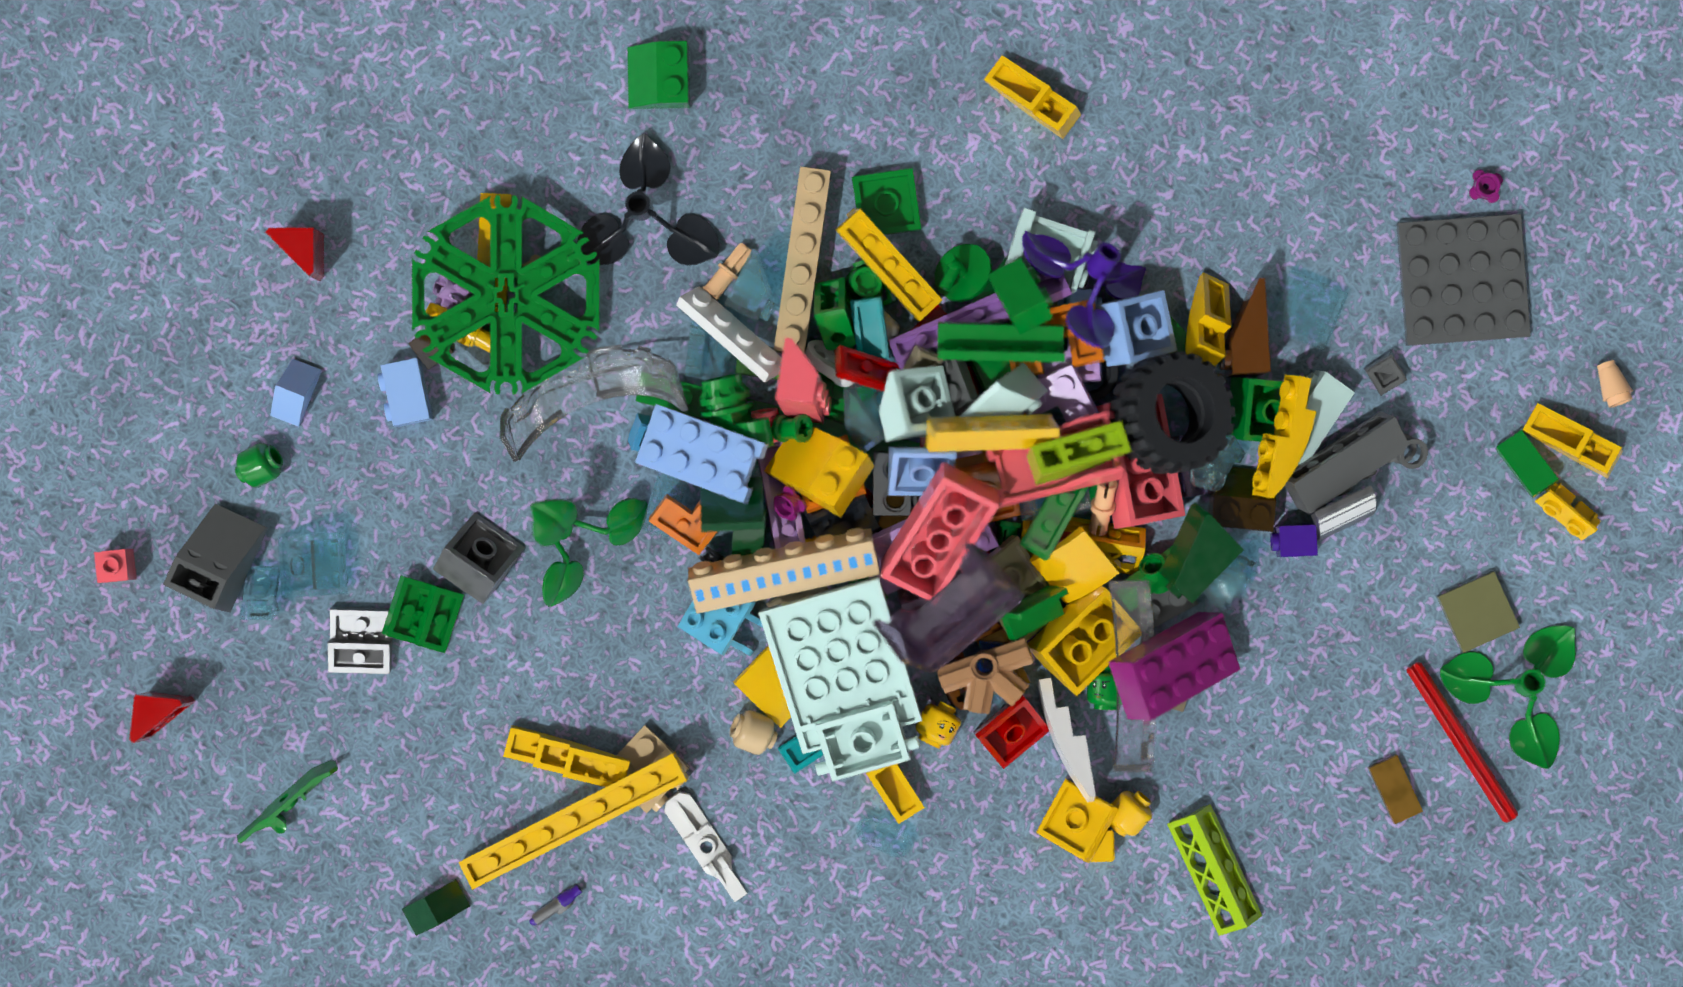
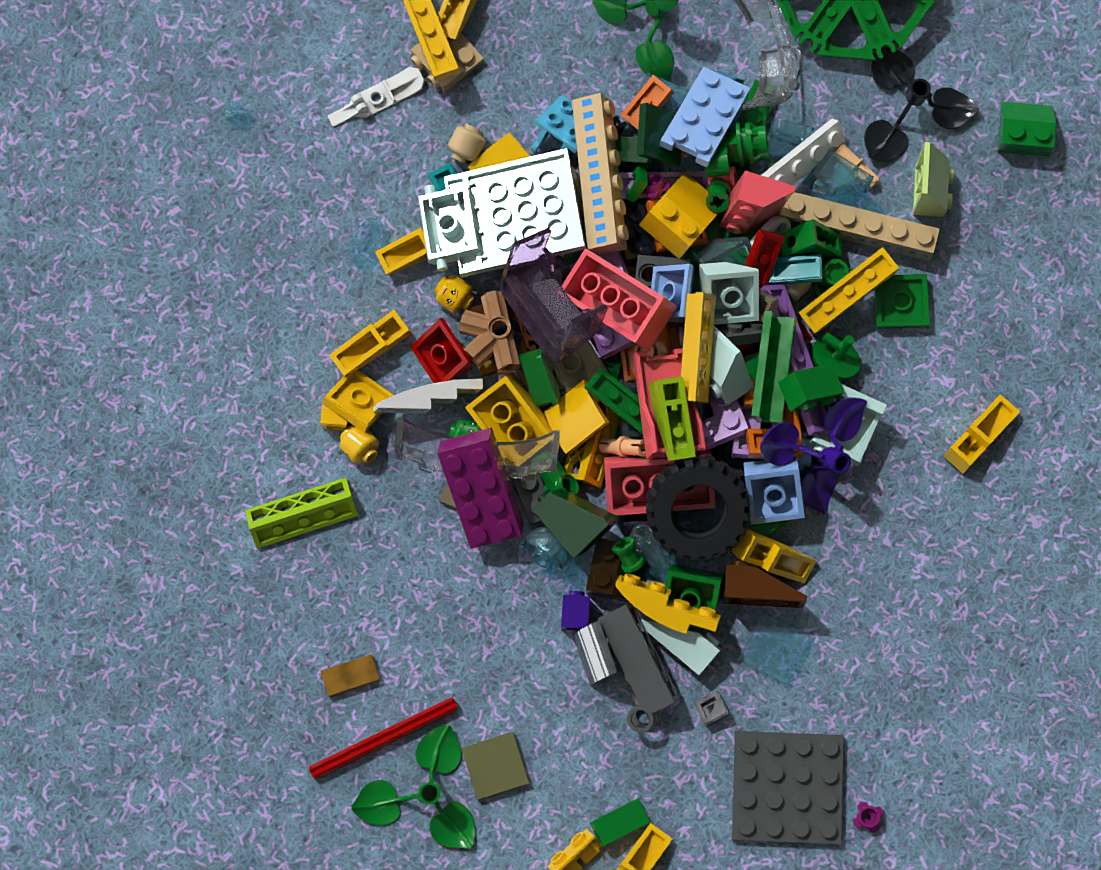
camera: 95 degrees right, 10 degrees down
(744, 180) = (932, 182): none -> yellowish green slope
(788, 522) = (638, 185): none -> green tile
(1008, 815) = (370, 343): none -> yellow slope
(1227, 490) = (628, 554): none -> green bush

